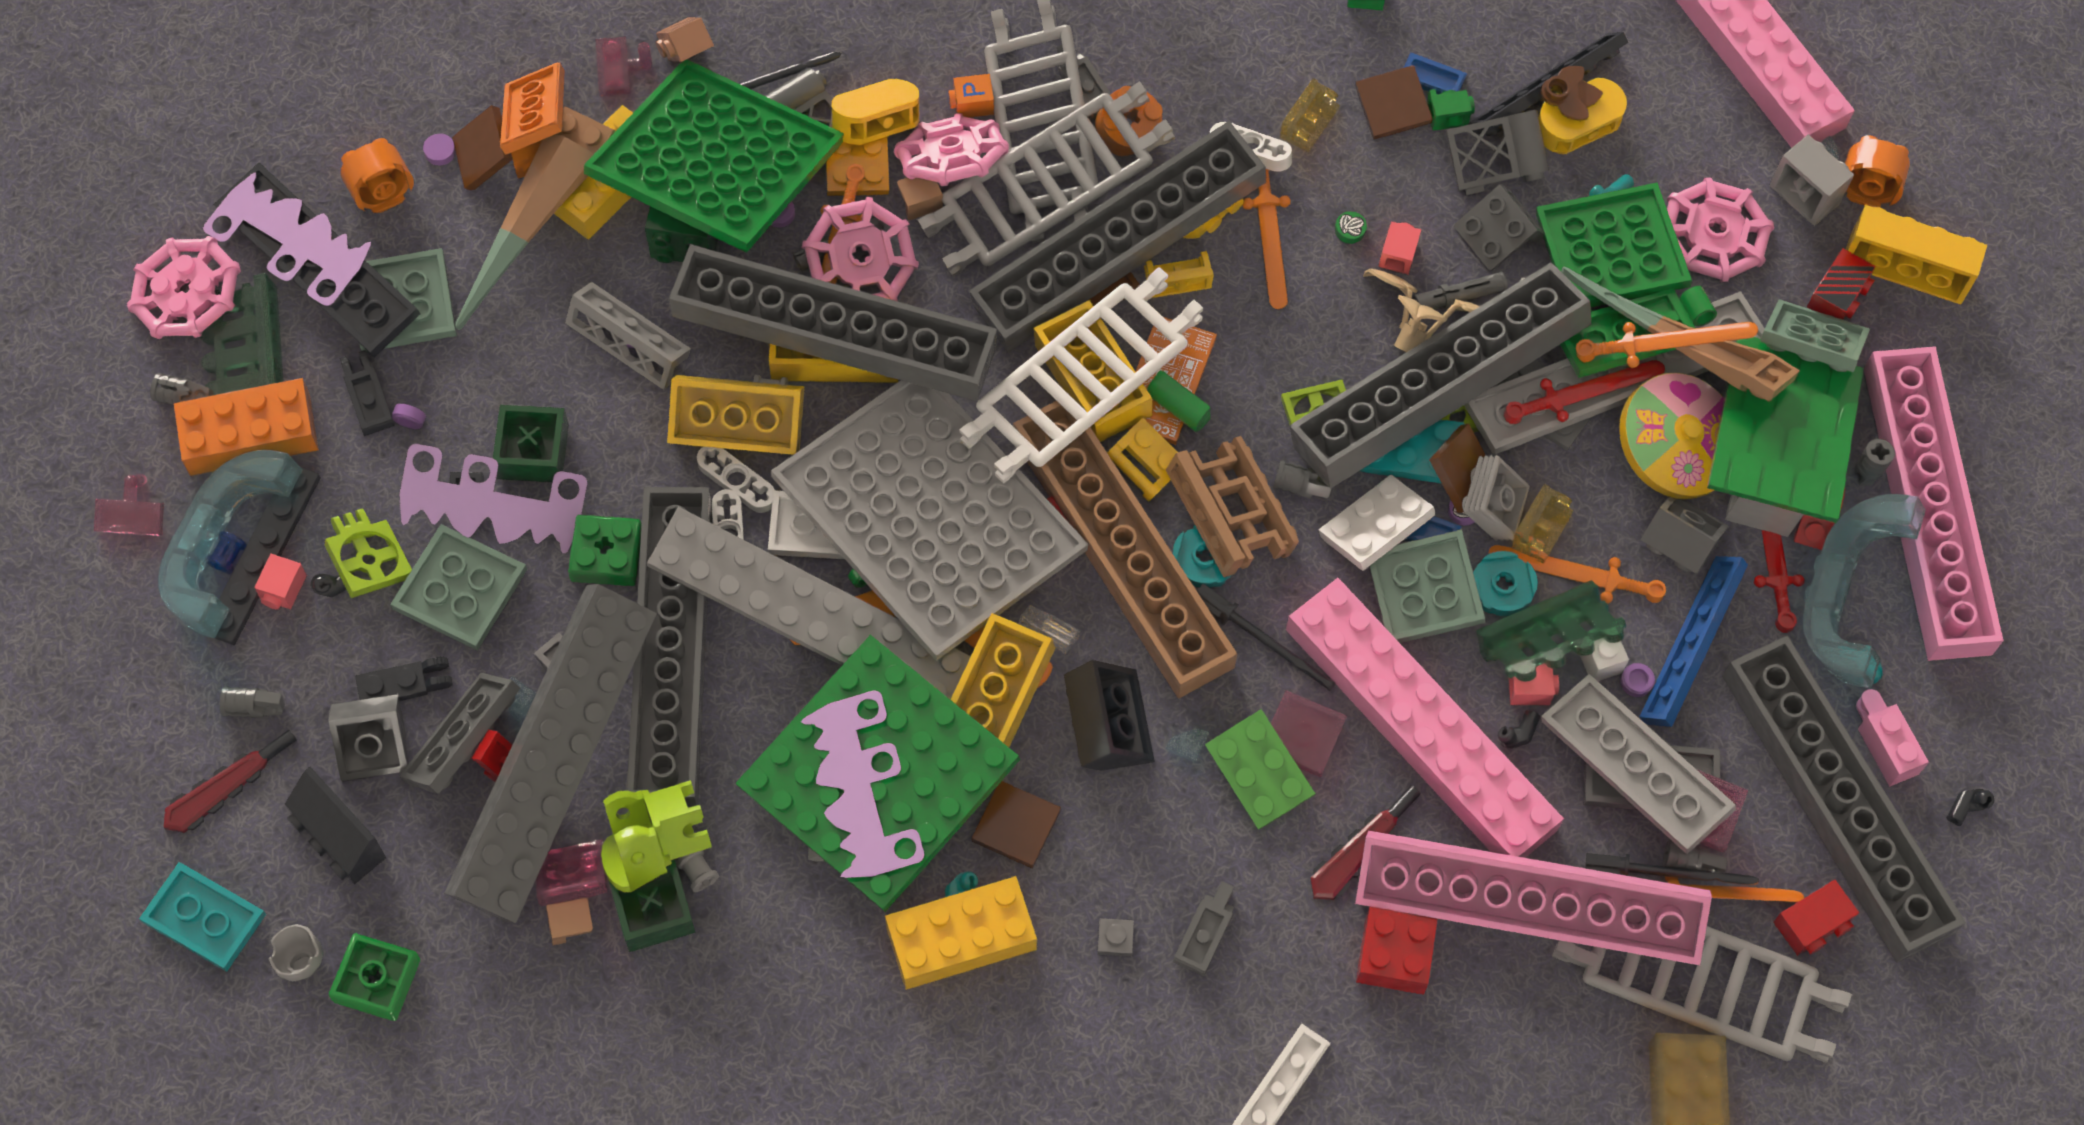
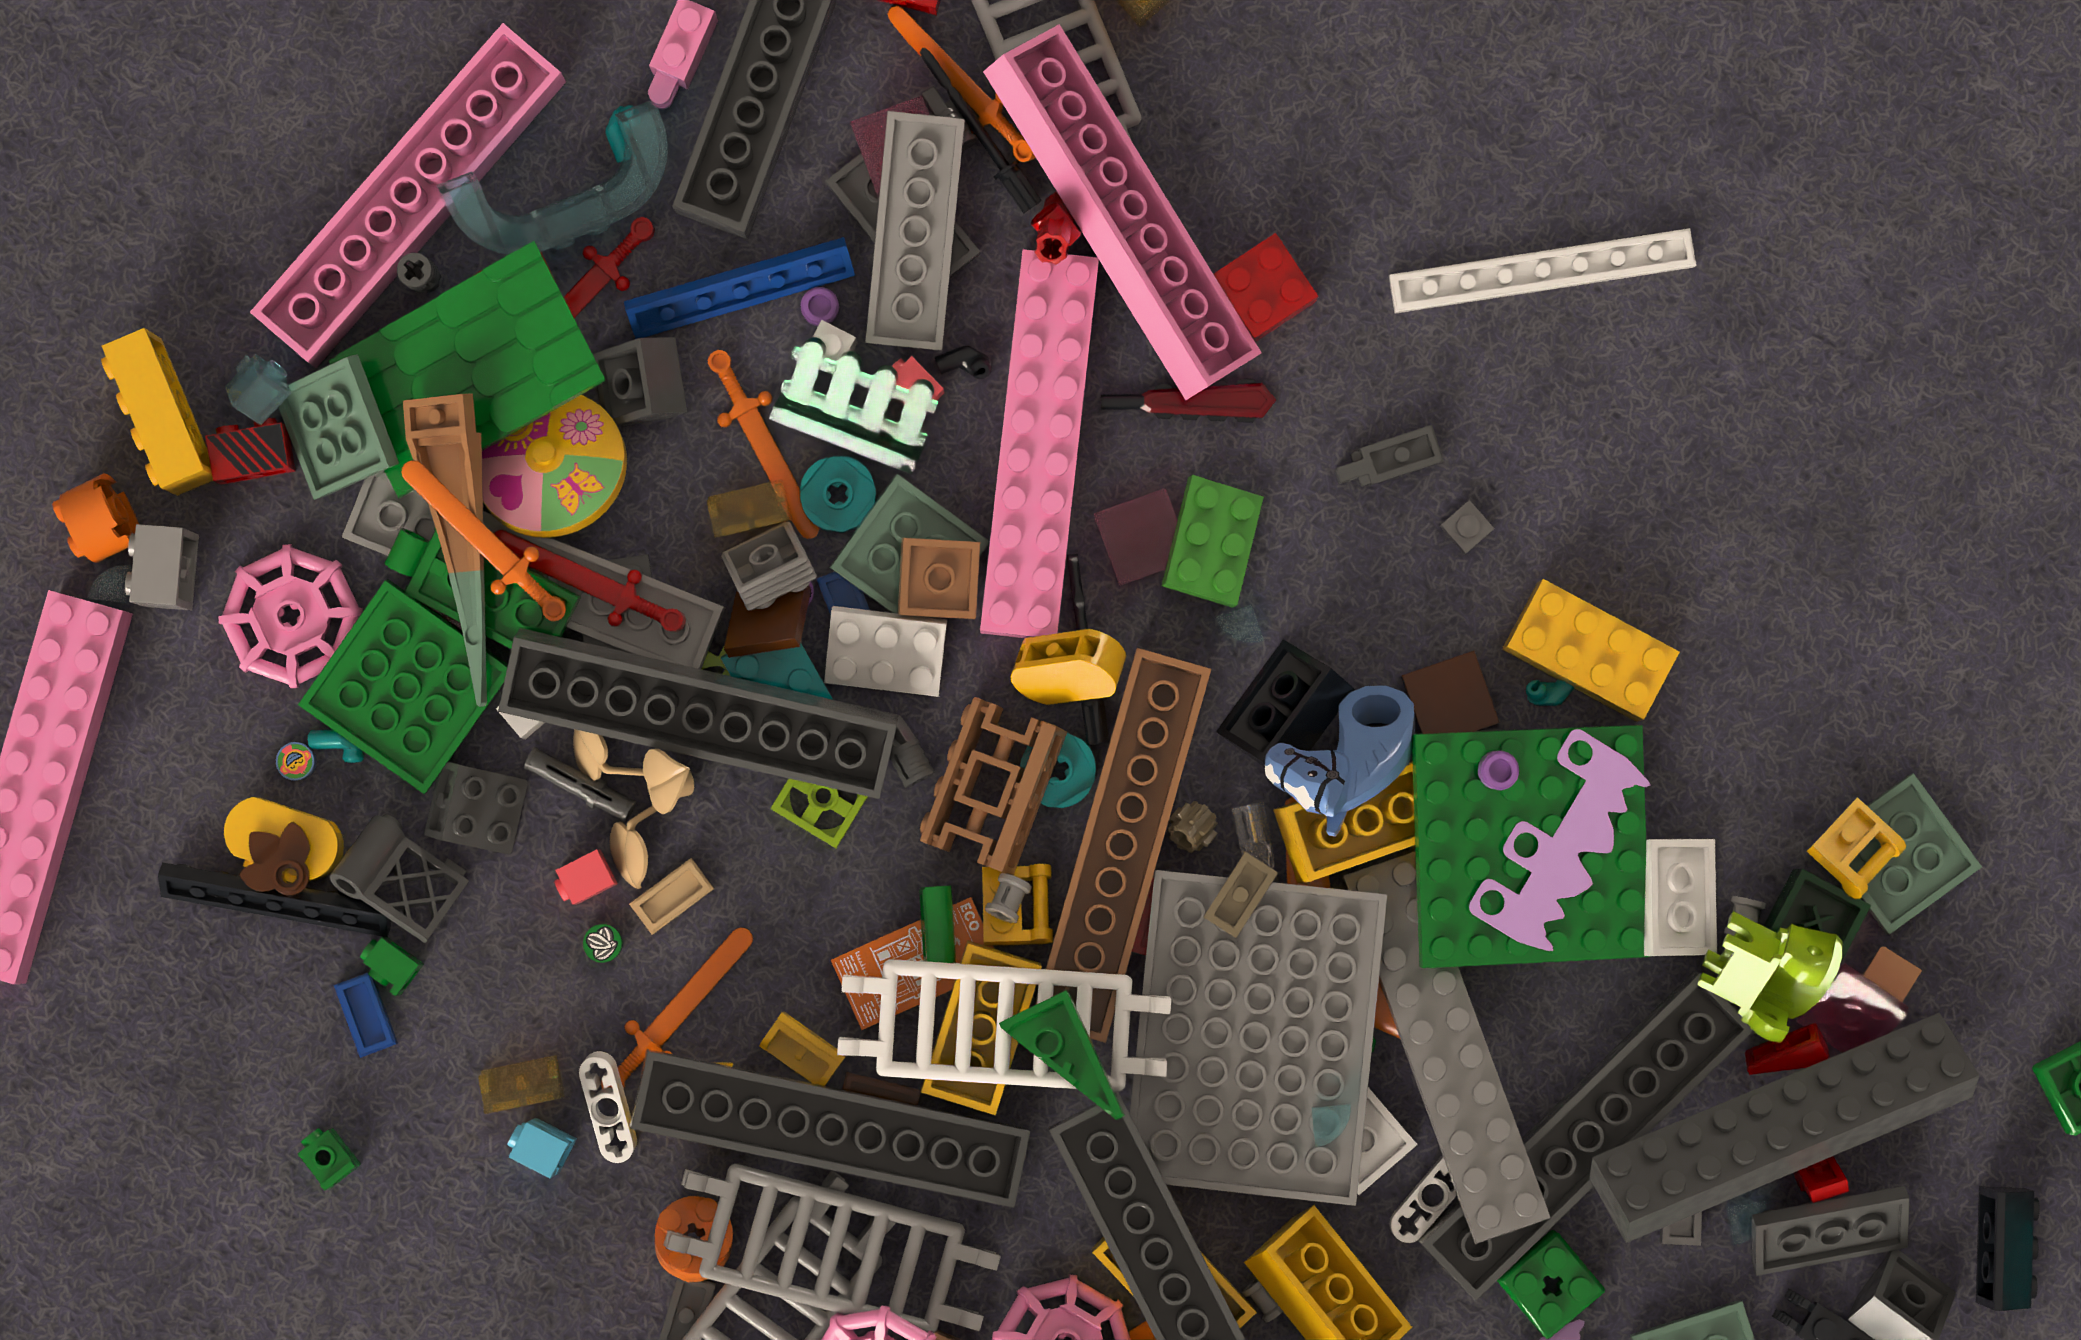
camera: 135 degrees left, 20 degrees up
(587, 814) = (1796, 1051): none -> red slope
(635, 1005) = (1929, 865): none -> sand green plate
(681, 968) = (1847, 838): none -> yellow plate
(713, 471) = (1380, 1212): white beam -> none
(752, 839) = (1680, 897): none -> white plate
(835, 498) = (1329, 1122): none -> clear light blue tile
(945, 783) = (1498, 770): none -> medium lavender tile
(1024, 570) = (1240, 894): none -> dark tan plate
(1031, 710) = (1362, 764): none -> medium blue animal
(1041, 385) = (1061, 1041): none -> green wing
(1091, 596) = (1192, 826): none -> dark tan gear
(1155, 448) = (1008, 898): none -> light grey bush
(1263, 89) = (540, 1147): none -> medium azure brick
(1264, 605) = (1068, 666): none -> yellow brick
(1342, 286) = (671, 896): none -> tan tile
(1393, 102) = (432, 1022): reddish brown tile -> none
(1394, 584) = (938, 578): none -> medium nougat plate
(1557, 839) = (1055, 230): none -> red piece
(1622, 161) = (296, 761): none -> tile
(1880, 316) = (258, 388): none -> clear light blue brick

